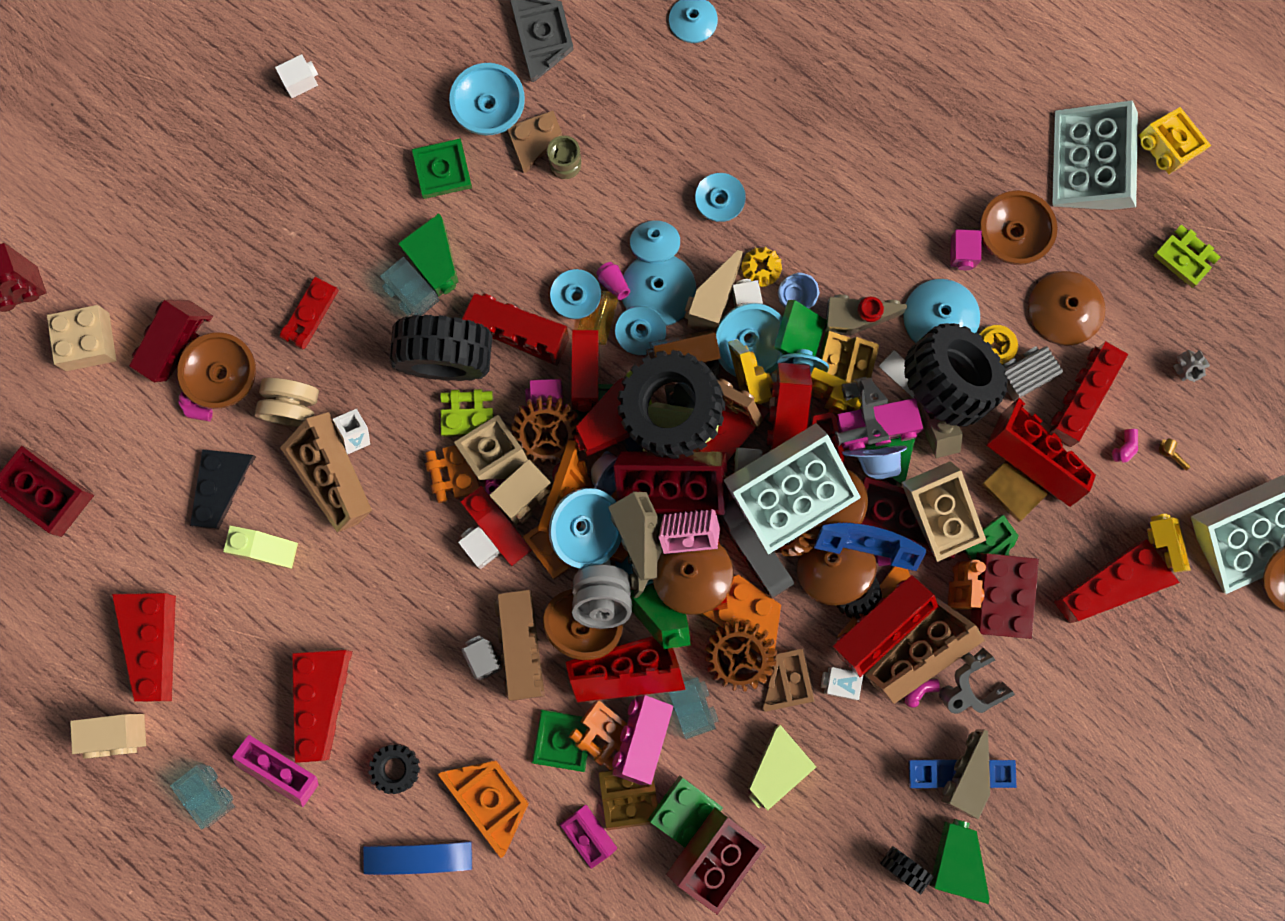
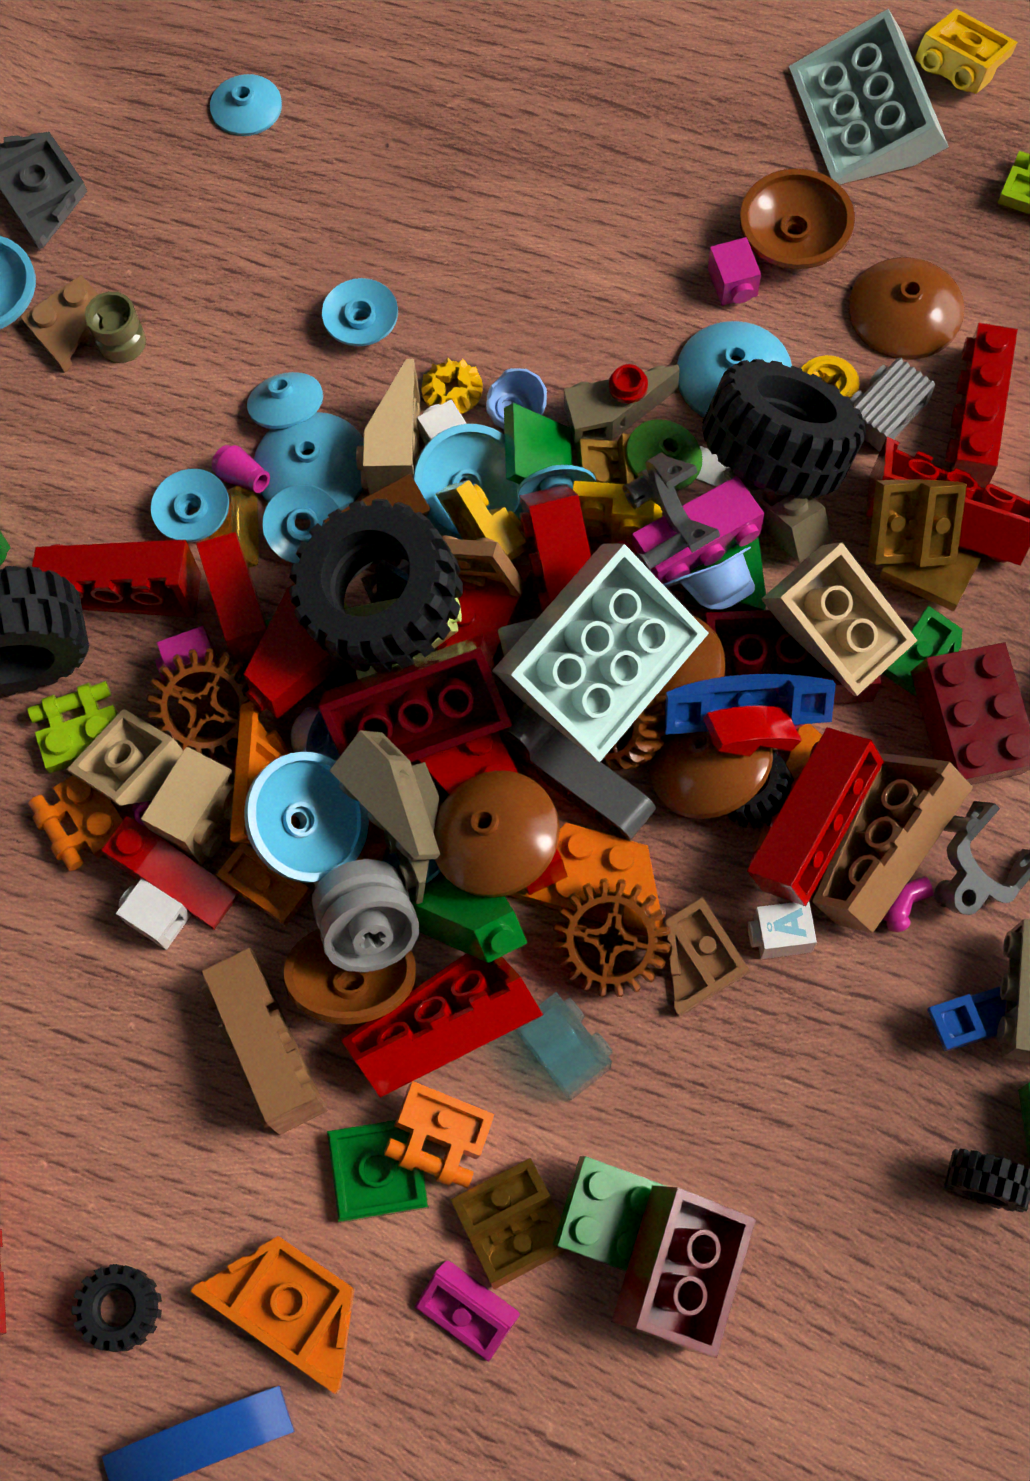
camera: 15 degrees left, 10 degrees down
(481, 658) = (206, 1077): light grey brick -> none
(642, 740) = (501, 1120): brick -> none
(689, 532) = (467, 767): bright pink brick -> none
(779, 769) = (733, 1094): yellowish green slope -> none
(866, 562) = (748, 727): none -> red slope
(868, 362) = (650, 440): none -> bright green dish
(966, 590) = (915, 720): orange plate -> none
(1014, 463) = (916, 522): none -> pearl gold slope

